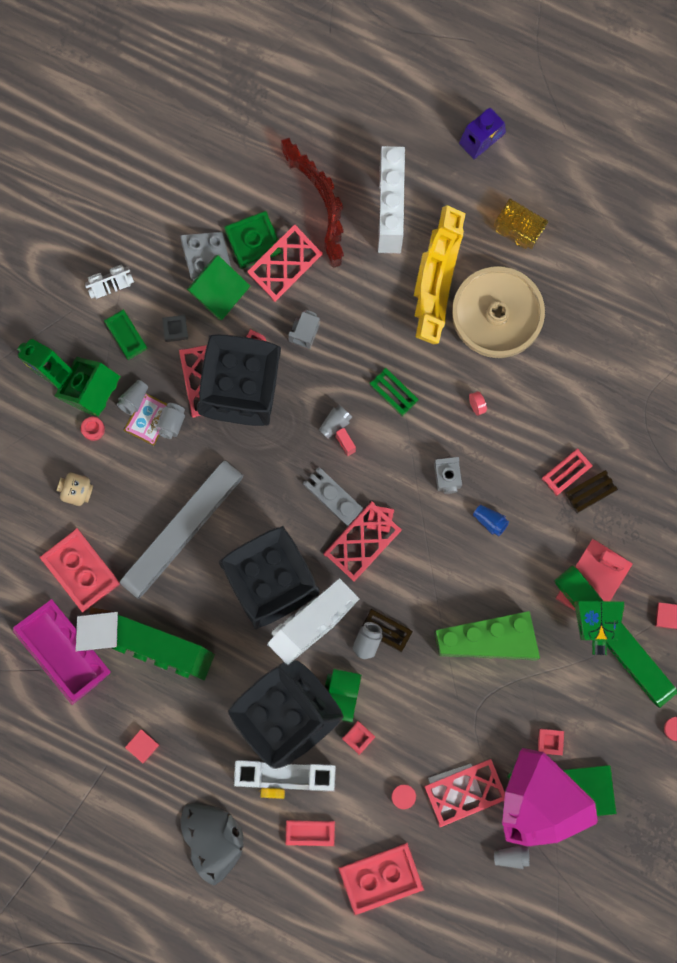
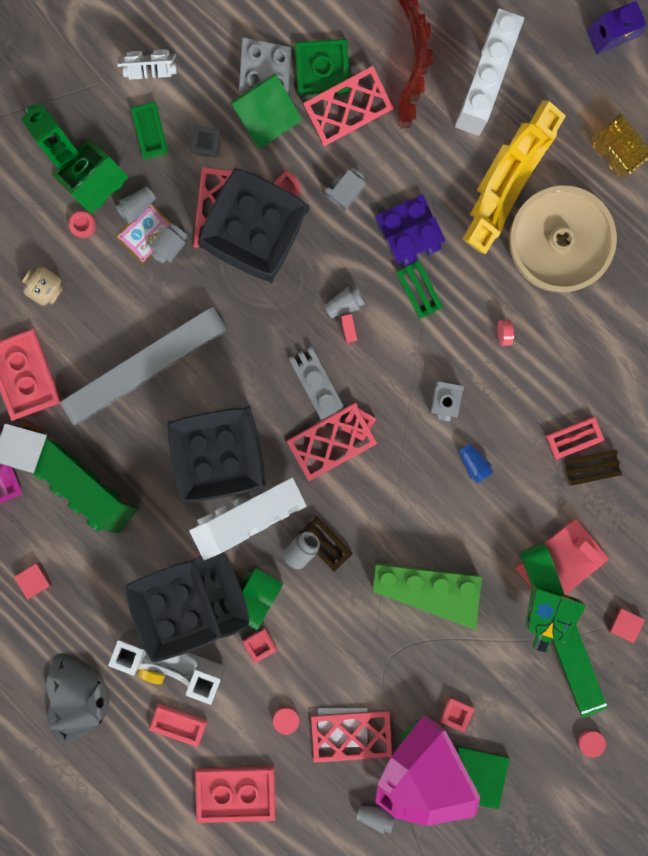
camera: 20 degrees right, 10 degrees up
(370, 346) = (410, 230): none -> dark purple plate

